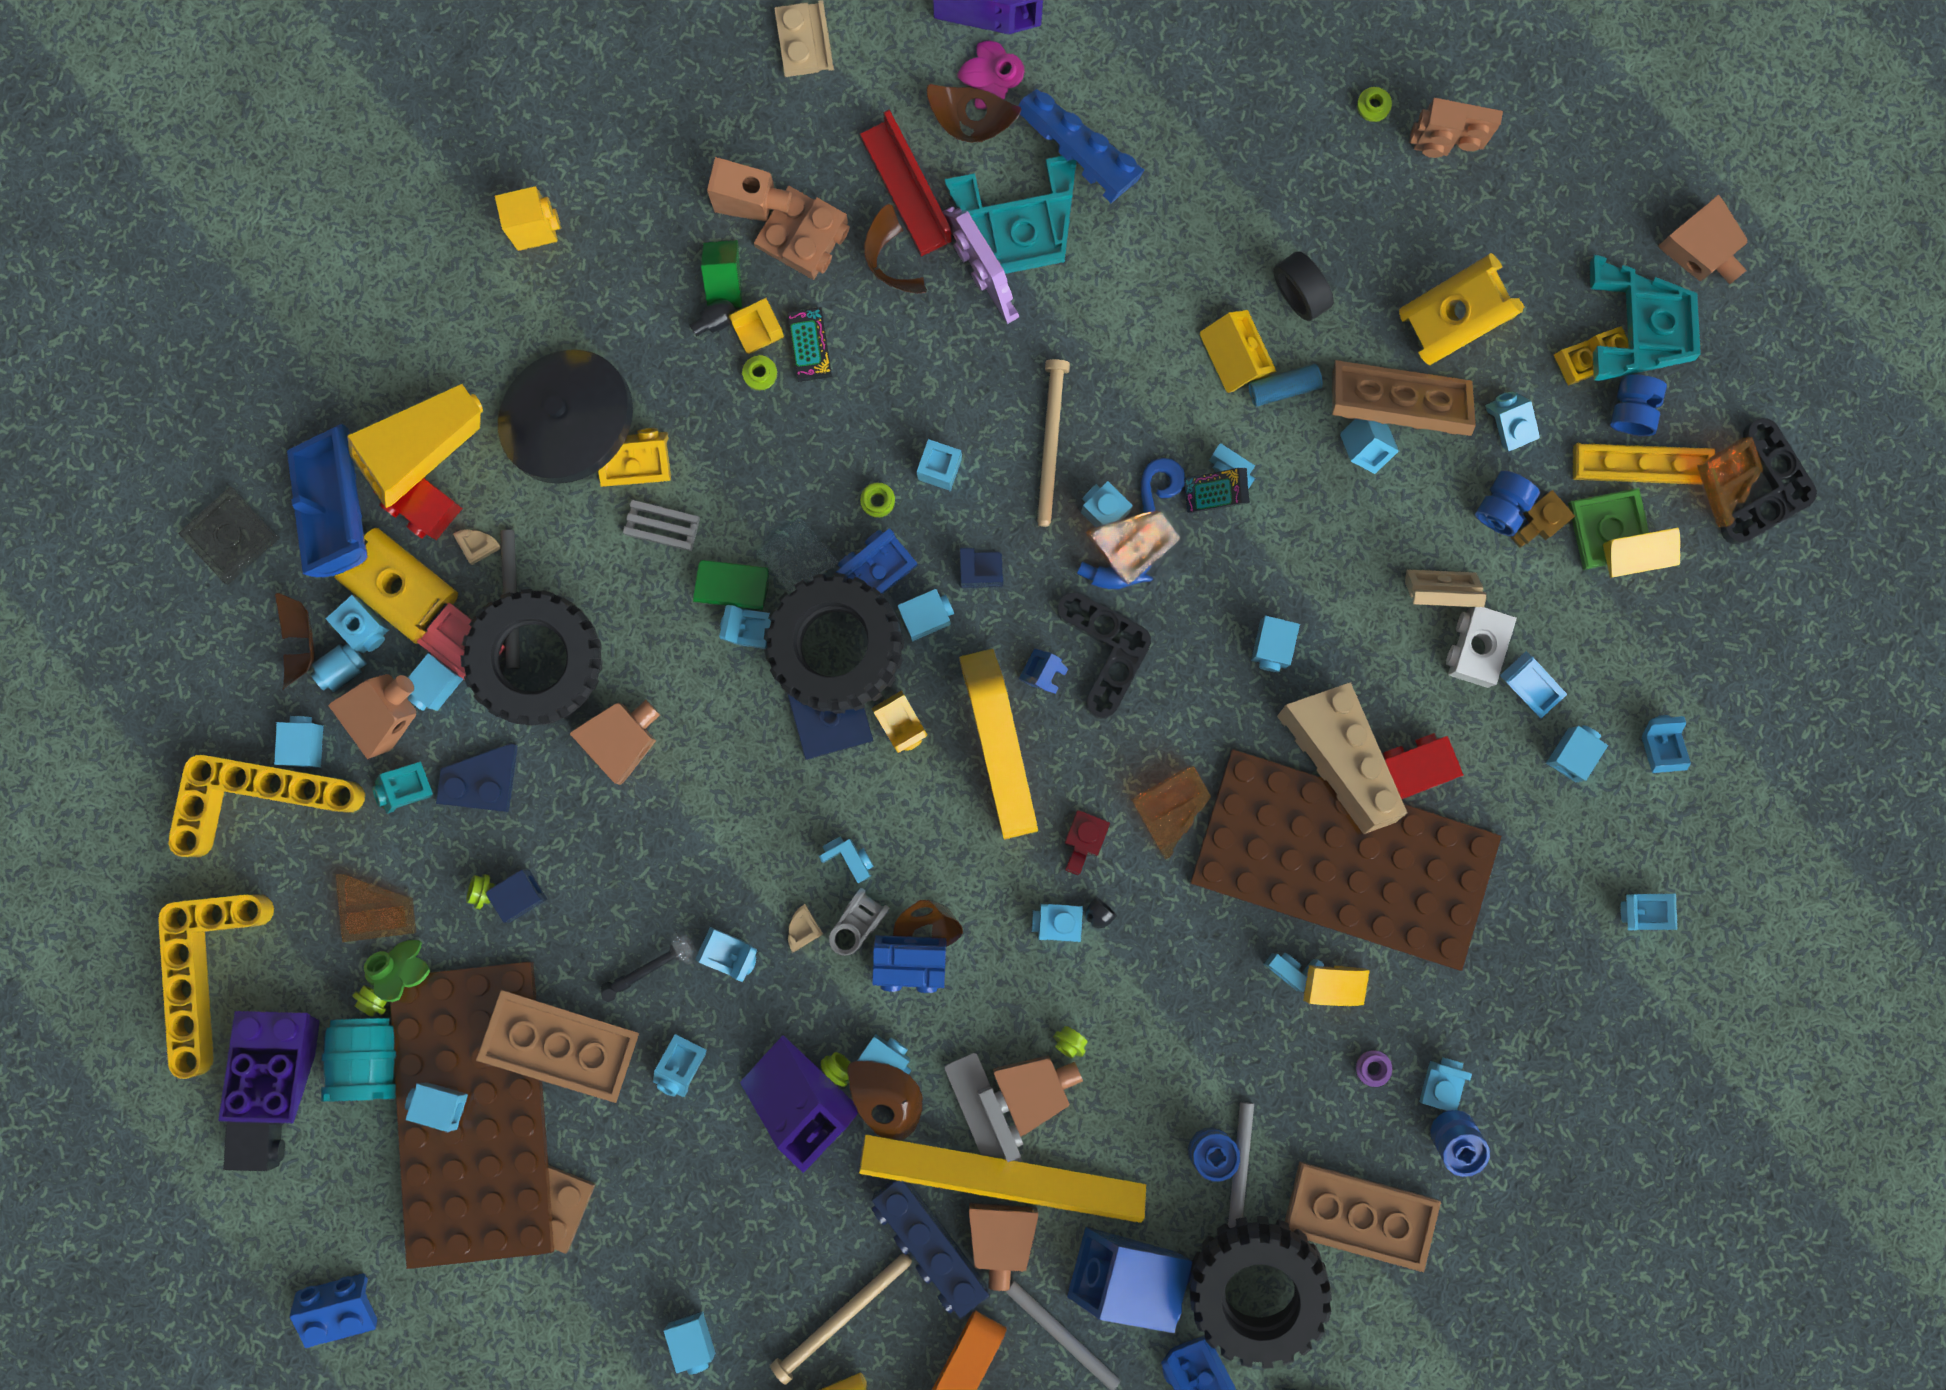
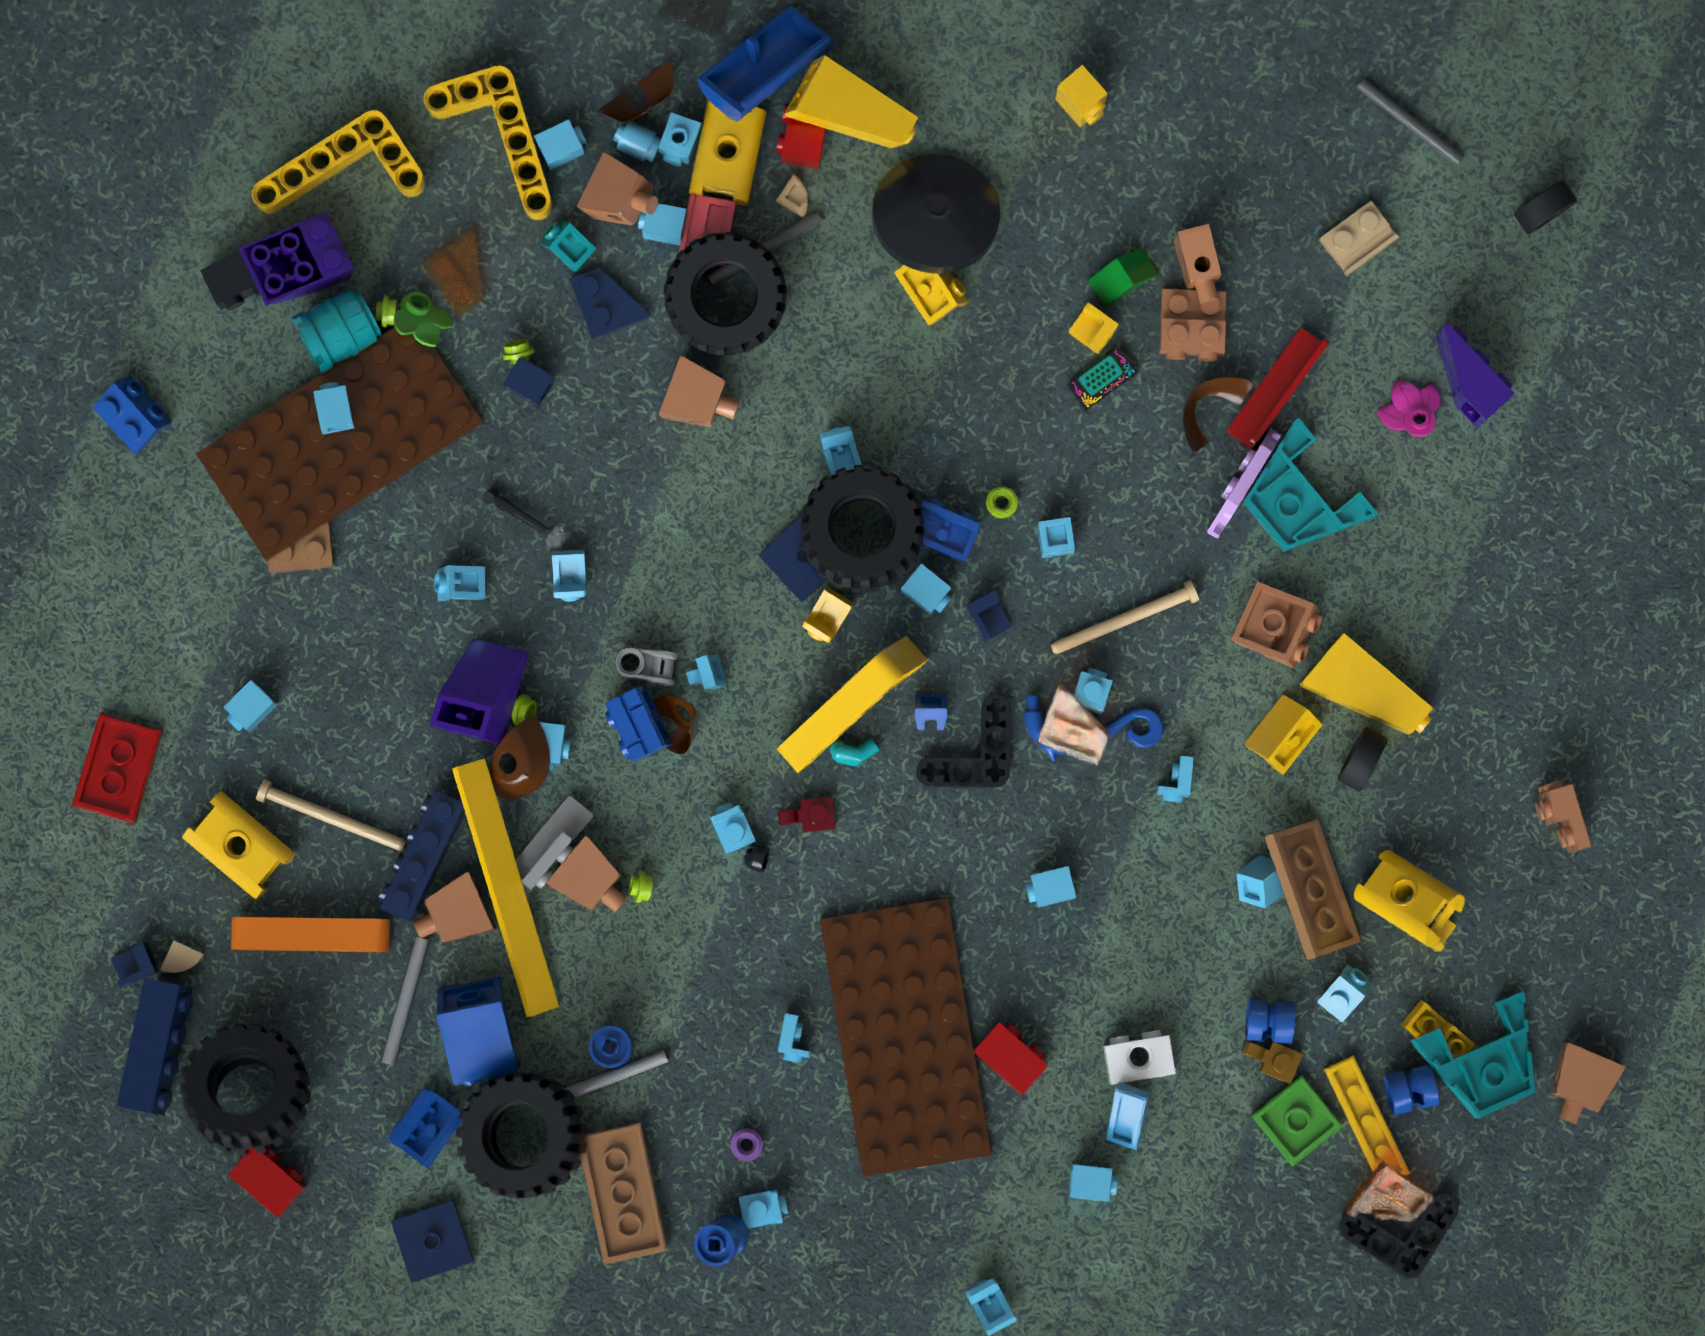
camera: 65 degrees right, 0 degrees up
(557, 1046) = (428, 479): medium nougat plate -> none
(633, 518) = (882, 311): light grey tile -> none
(714, 317) = (1083, 289): black cylinder -> none
(731, 584) = (868, 420): green slope -> none
(766, 380) = (1052, 360): lime plate -> none
(802, 929) = (620, 625): tan tile -> none
(856, 860) = (698, 639): medium azure bracket -> none
(895, 866) = (708, 672): none -> medium azure tile
(950, 108) = (1362, 389): reddish brown piece -> none
(1047, 769) = (852, 755): none -> teal arm
(1077, 142) = (1385, 527): blue wing -> none
(1132, 301) = (1277, 625): none -> nougat plate
(1171, 807) = (873, 872): clear orange wing -> none
(1217, 490) = (1153, 774): tile -> none
(1231, 250) = (1365, 686): none -> yellow slope
(1270, 384) = (1280, 787): dark azure piece -> none
(1336, 985) = (797, 1078): yellow slope -> none
(1347, 755) = (993, 984): tan wedge -> none
(1372, 113) = (1548, 748): lime plate -> none
(1445, 588) = (1171, 1004): tan plate -> none
(1643, 552) = (1287, 1154): yellow slope -> none
(1666, 744) = (1137, 1252): dark azure bracket -> none

